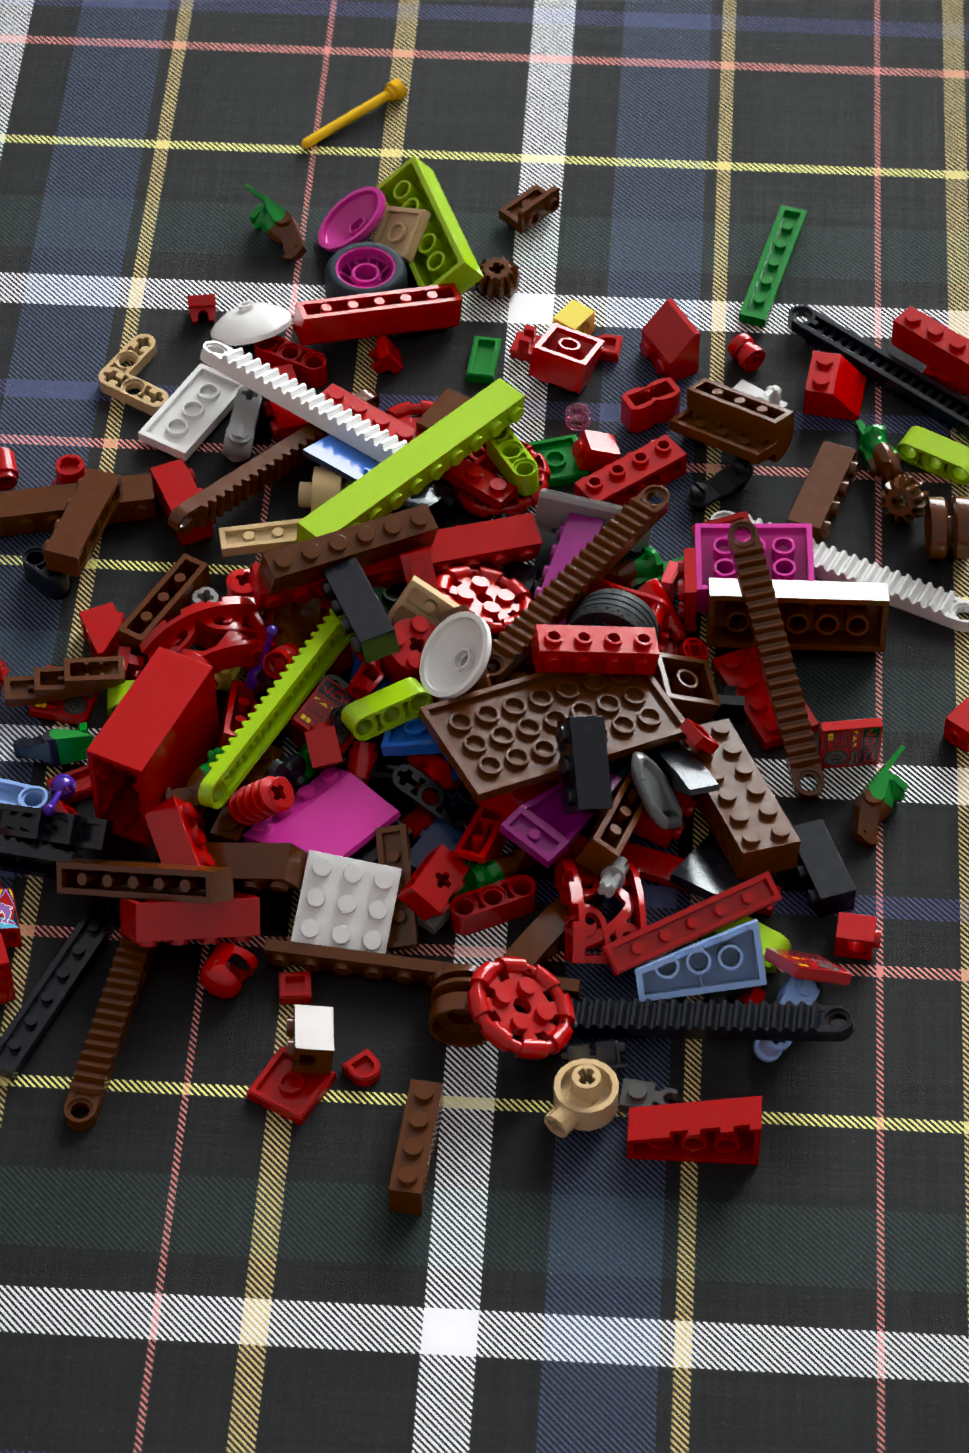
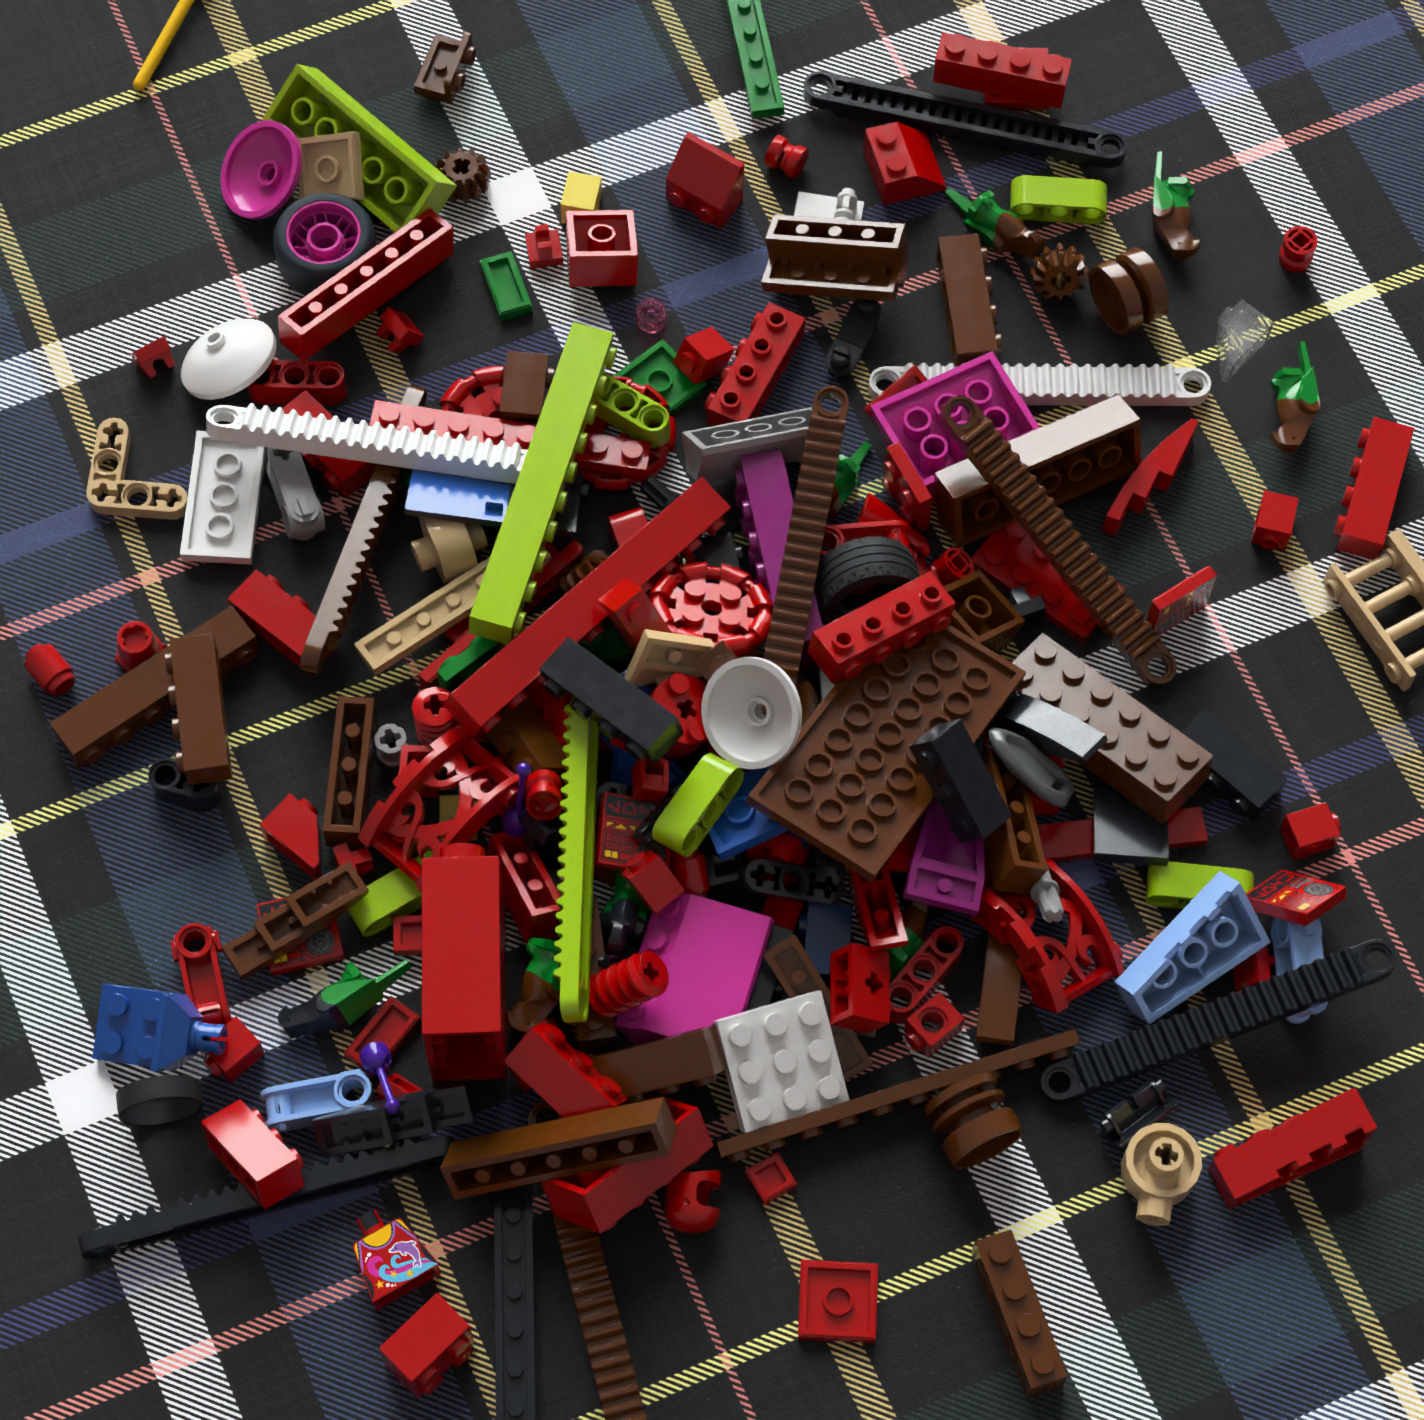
camera: 30 degrees left, 15 degrees up
(278, 225) = (176, 210): animal -> none
(311, 1039) = (836, 1241): brick -> none
(363, 1069) = (901, 1242): red tile -> none
(367, 541) = (547, 627): reddish brown brick -> none
(478, 939) = (937, 1010): none -> red brick
(501, 1020) = (1062, 1092): red plate -> none
(611, 348) = (637, 204): red tile -> none
(643, 1093) = (1209, 1129): dark grey plate -> none
(650, 405) = (728, 270): red brick -> none
(670, 579) = (874, 479): coral tile -> none
(691, 923) = (1151, 906): red tile -> none
(698, 737) = (1041, 680): red plate -> none
(876, 802) = (1236, 655): animal -> none
(894, 656) = (1155, 471): none -> red slope

